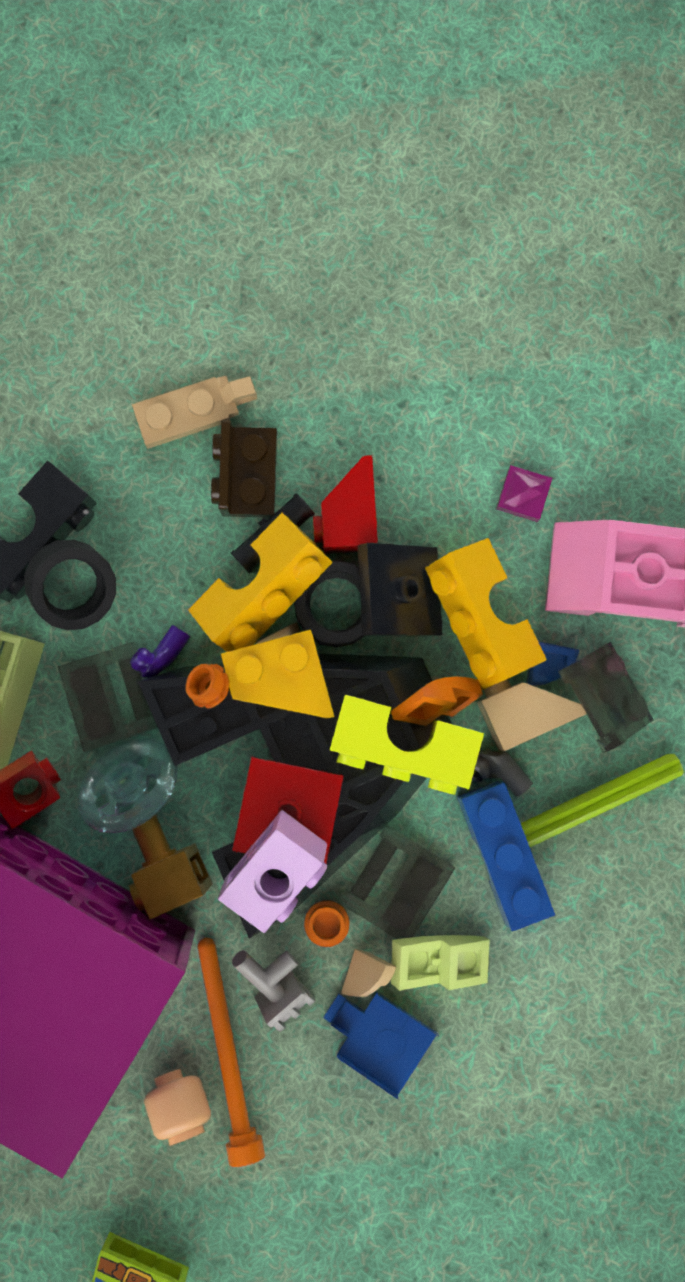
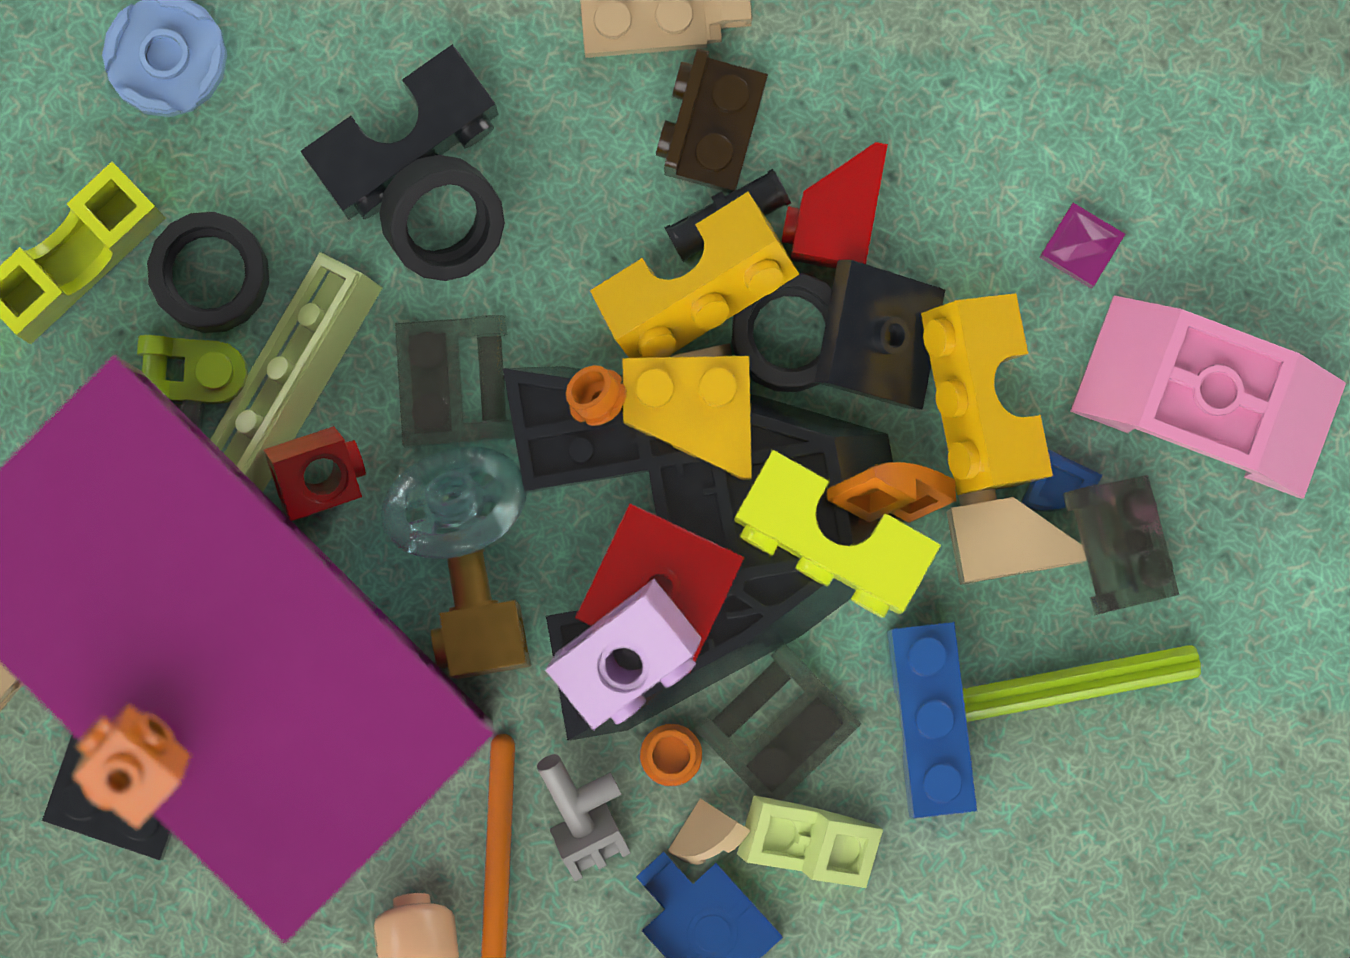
camera: 15 degrees right, 0 degrees up
(163, 656) = (542, 342): dark purple arm -> none
(501, 765) = (952, 603): dark grey arm -> none

